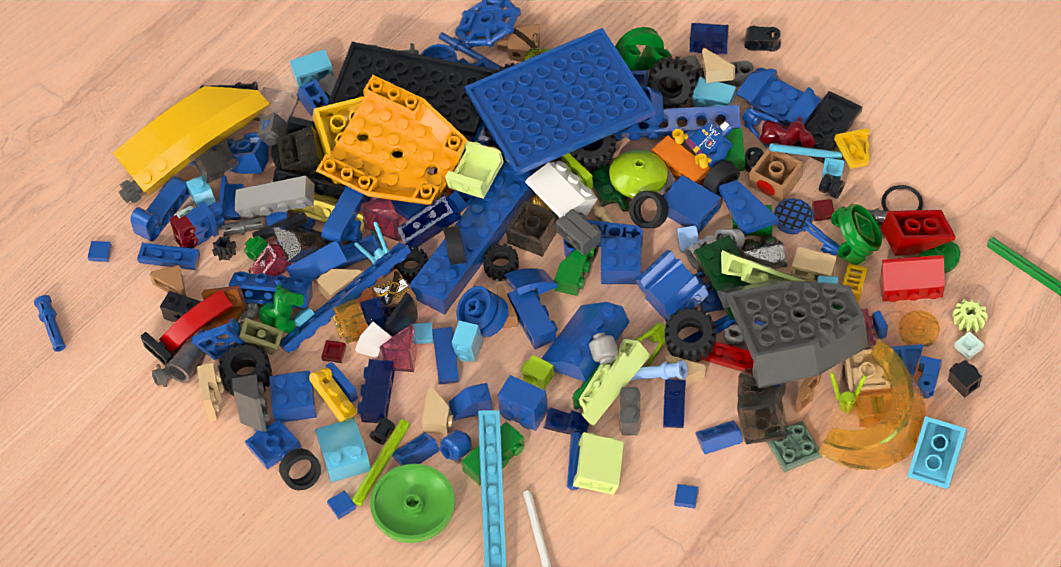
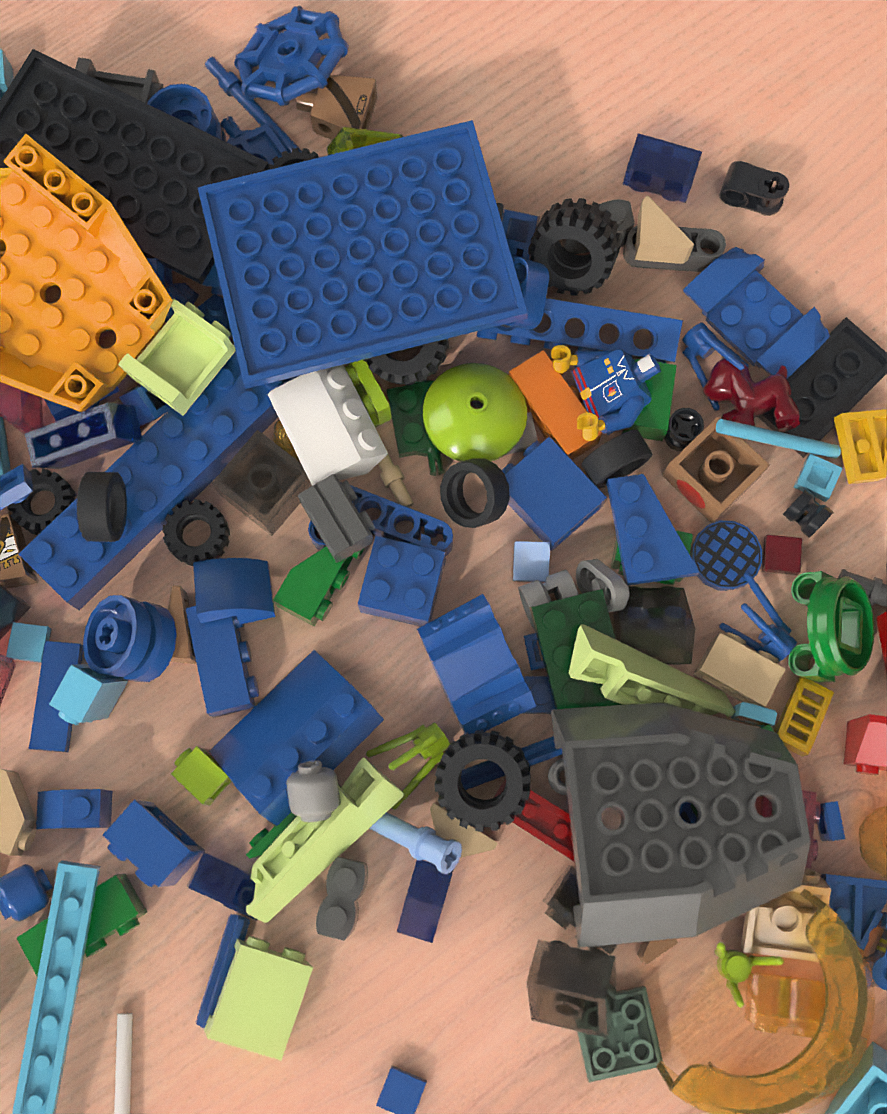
camera: 10 degrees right, 20 degrees up
(651, 54) = (556, 181): green piece -> none
(713, 94) = (642, 284): medium azure brick -> none
(719, 437) = (489, 979): blue slope -> none

